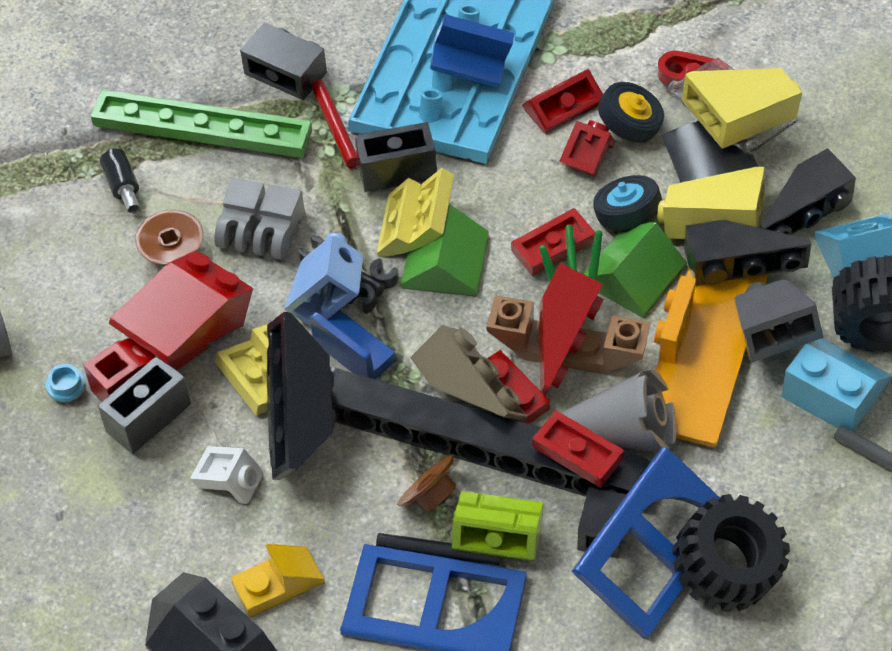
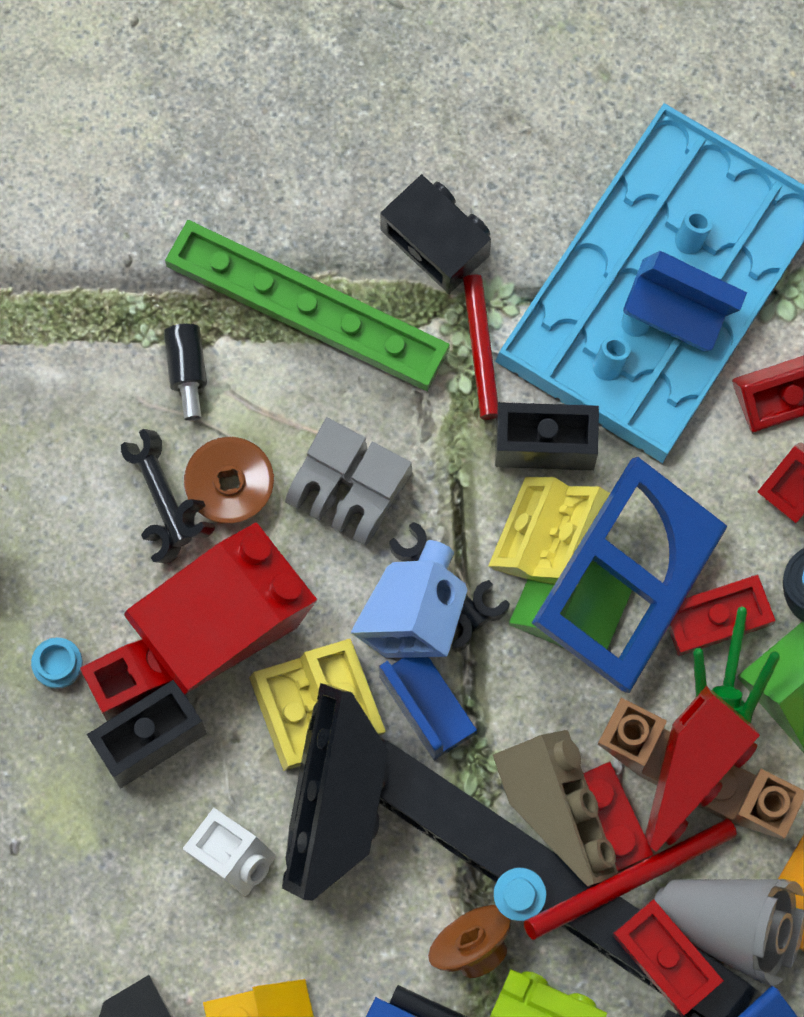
camera: 10 degrees right, 20 degrees up
(137, 270) = (178, 521): none -> black bar
(454, 435) = (520, 894): none -> medium azure plate
(520, 197) = (691, 539): none -> blue window
(534, 411) = (629, 879): none -> red axle

